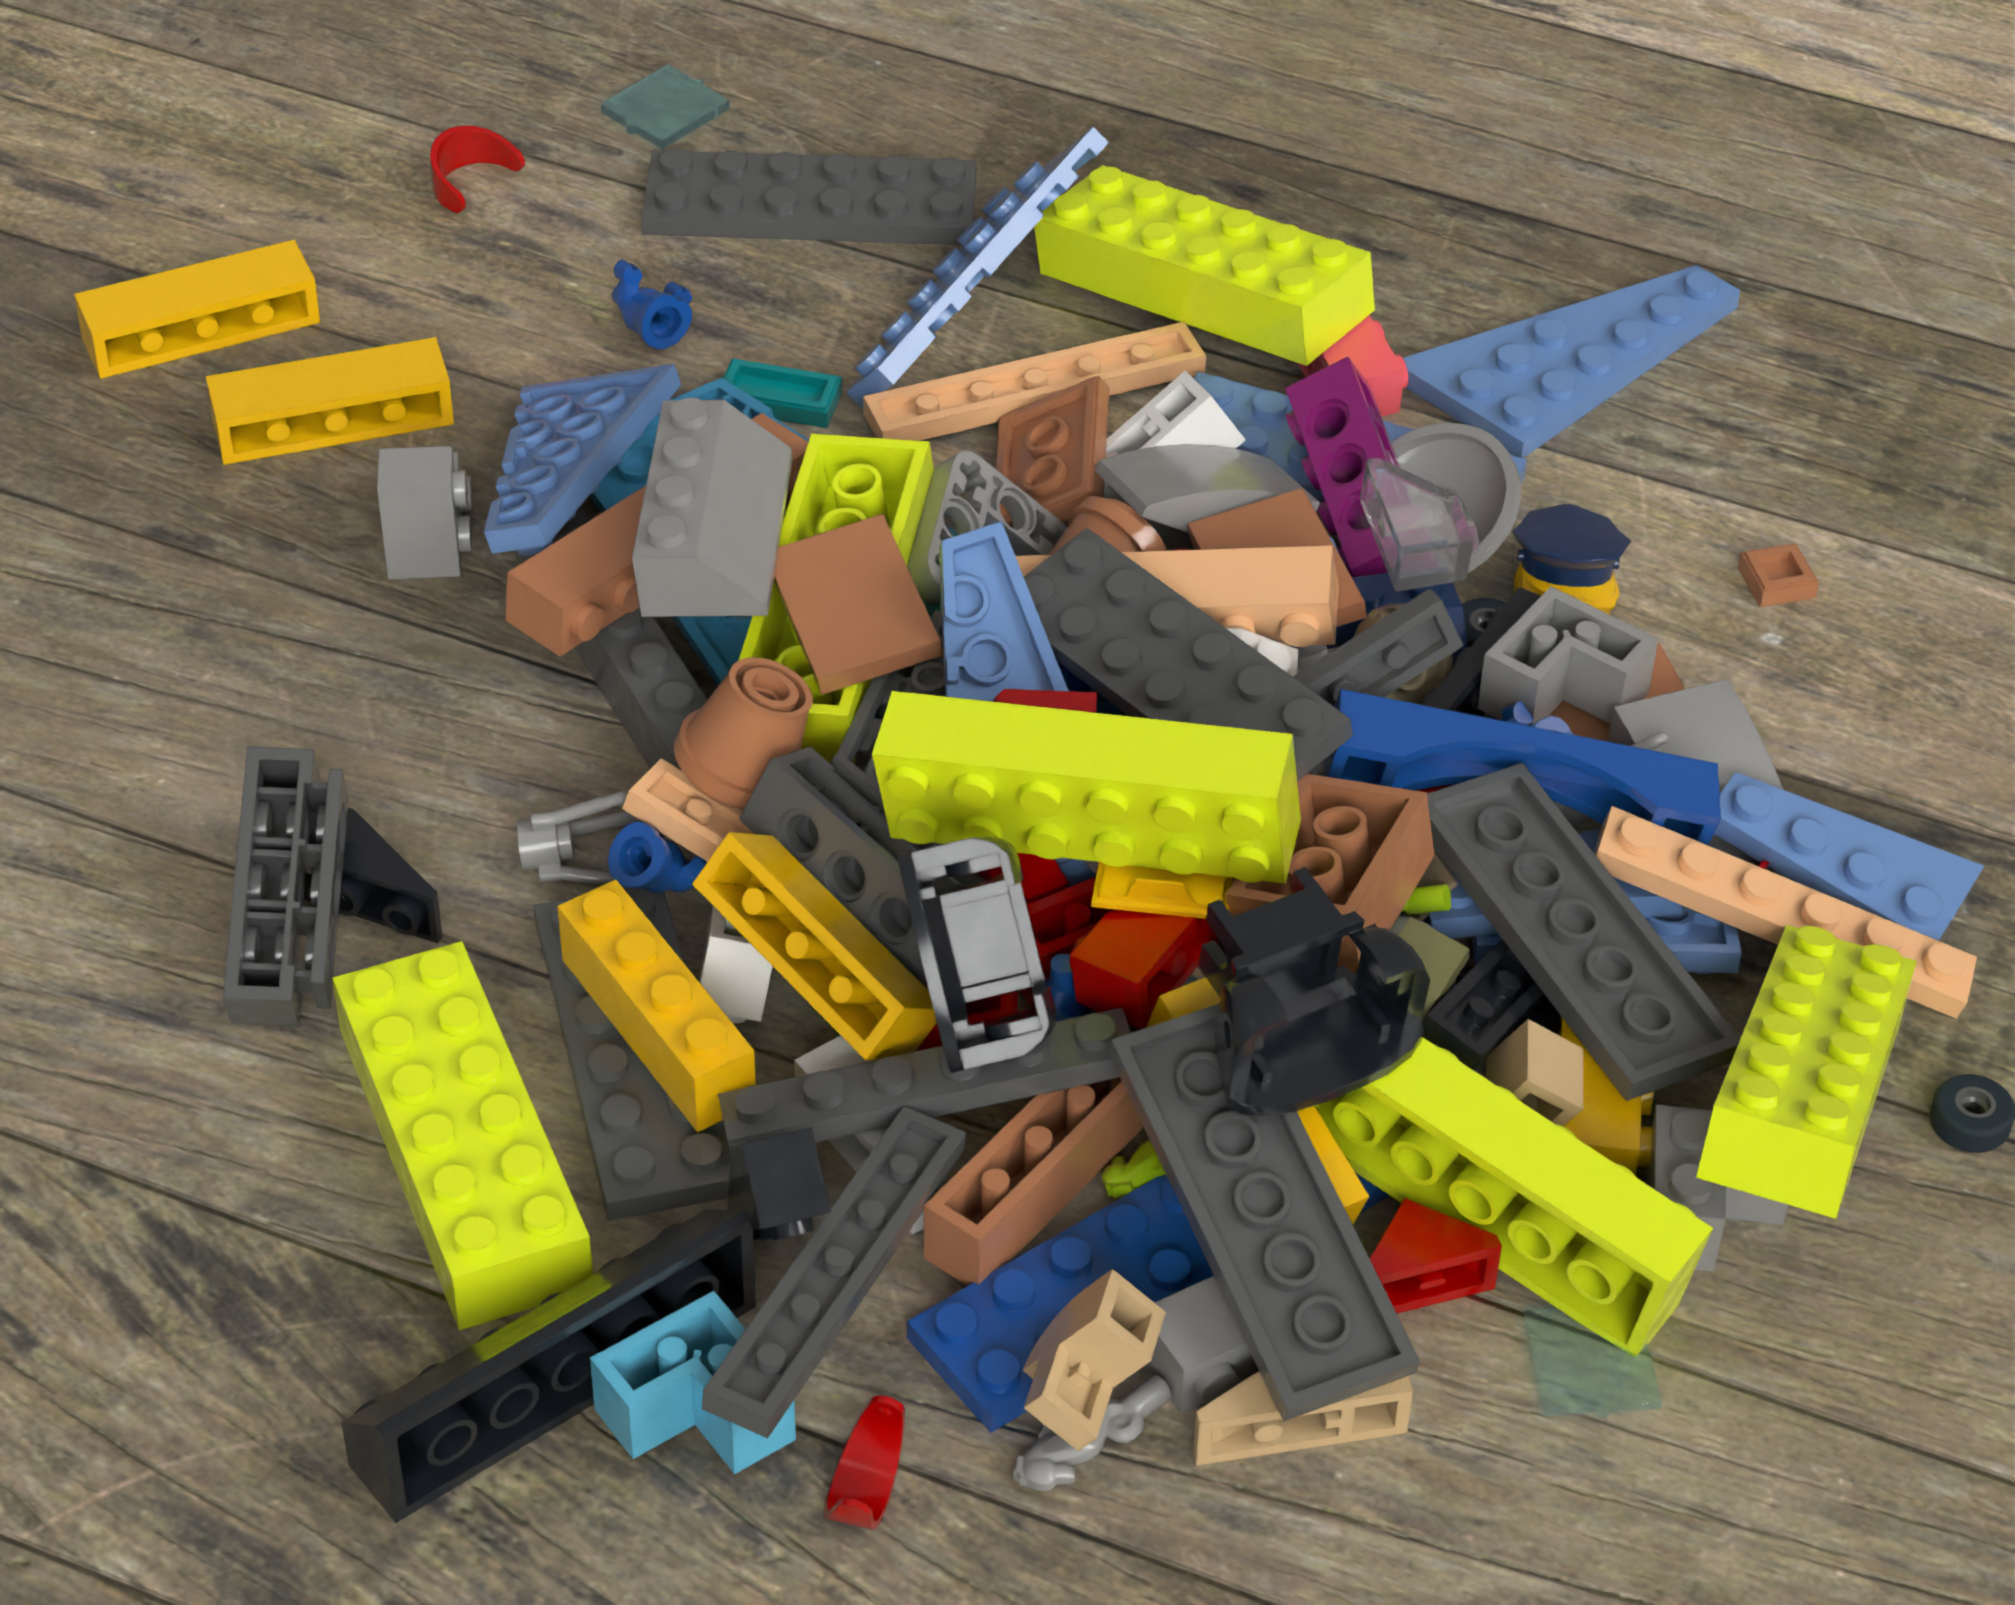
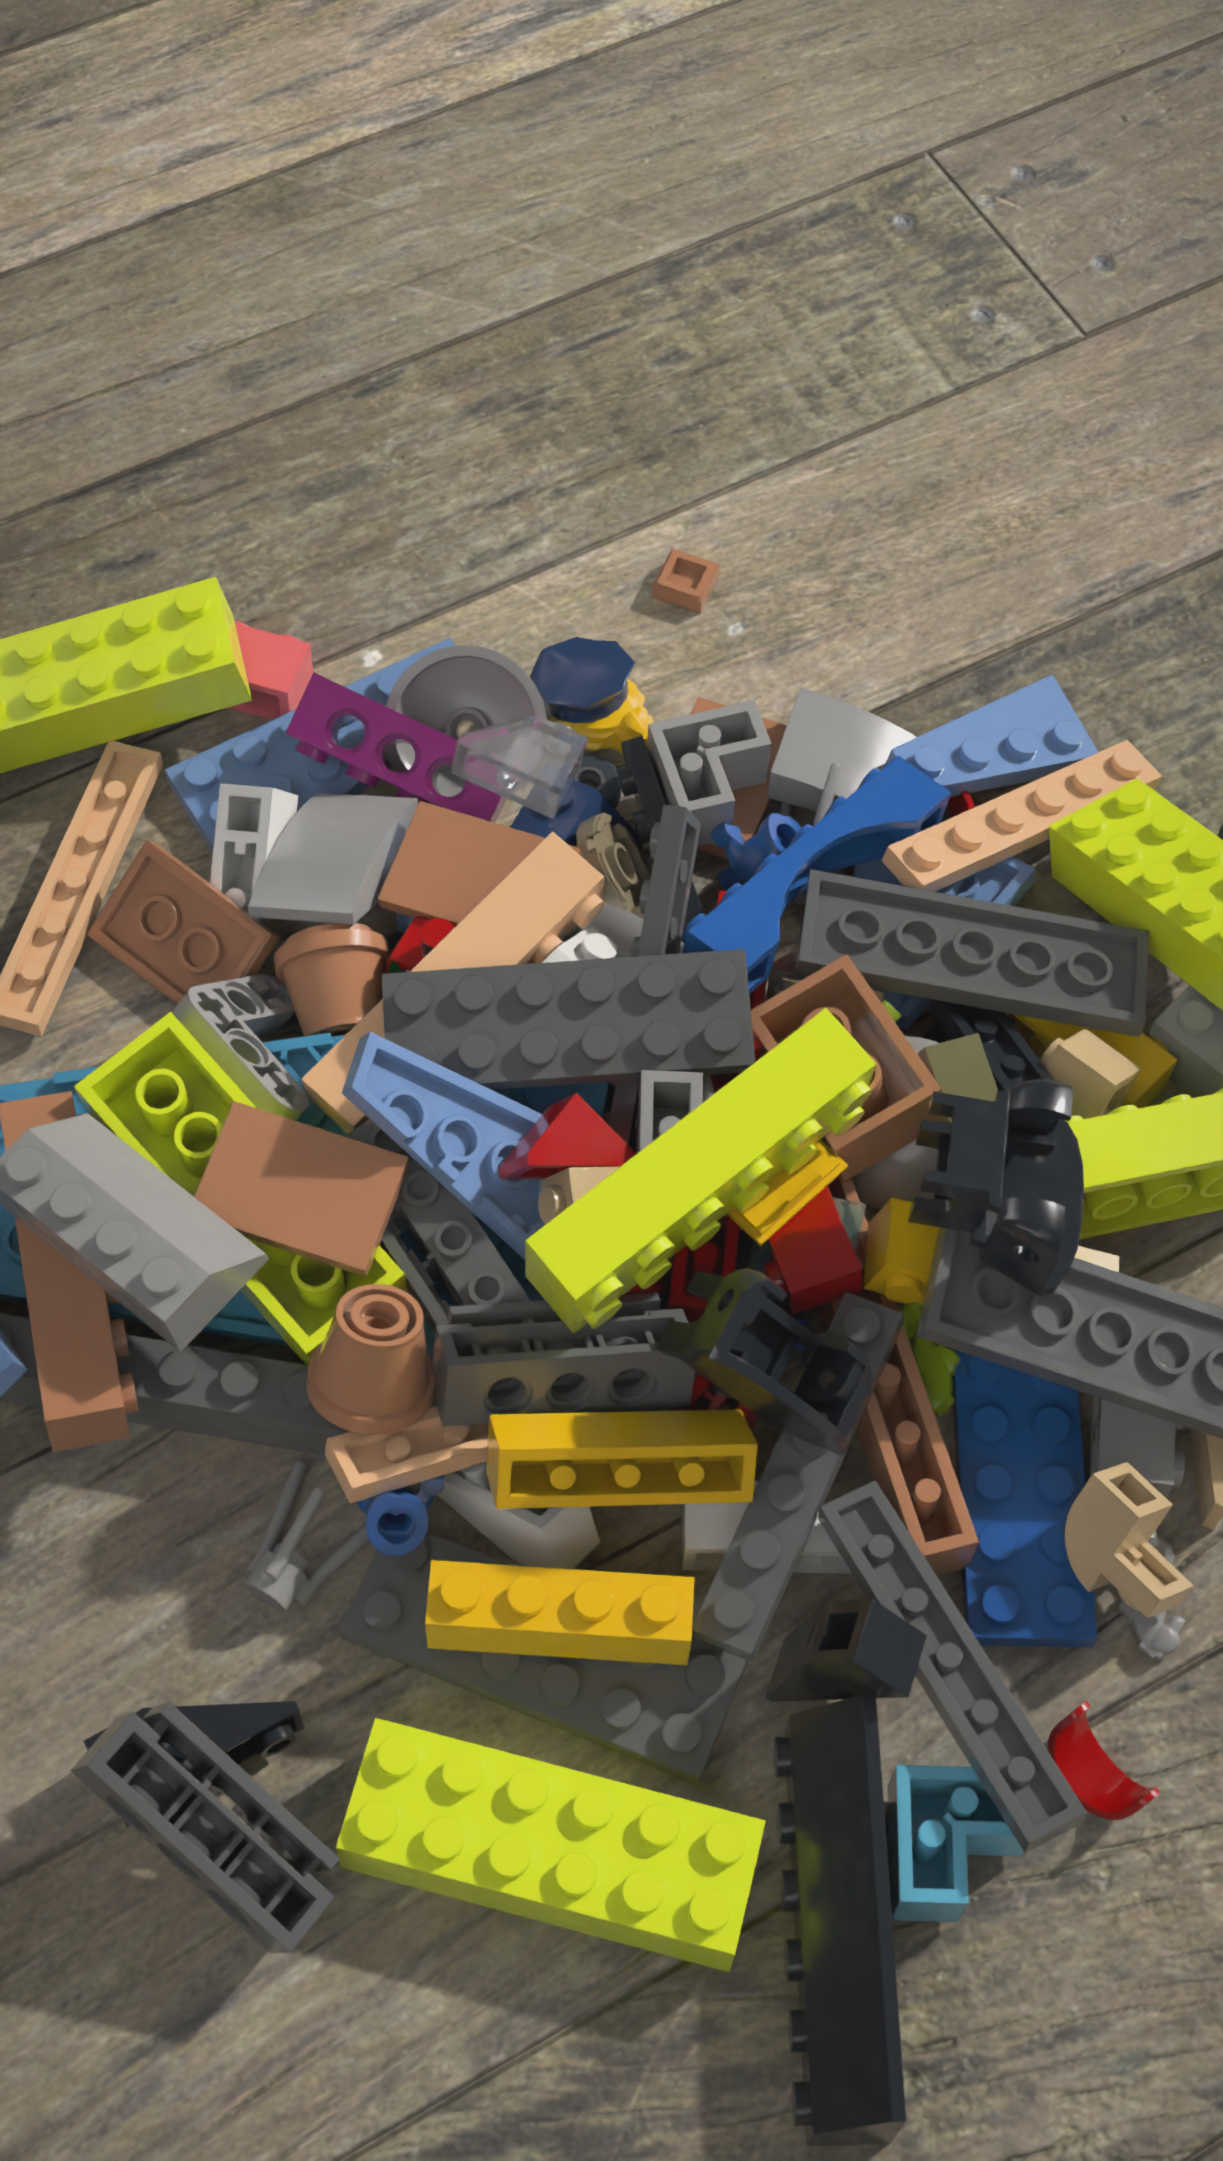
camera: 55 degrees left, 15 degrees up
(1434, 1258) = (1158, 1246): red slope -> none
(1560, 365) = (361, 550): medium blue wing -> none

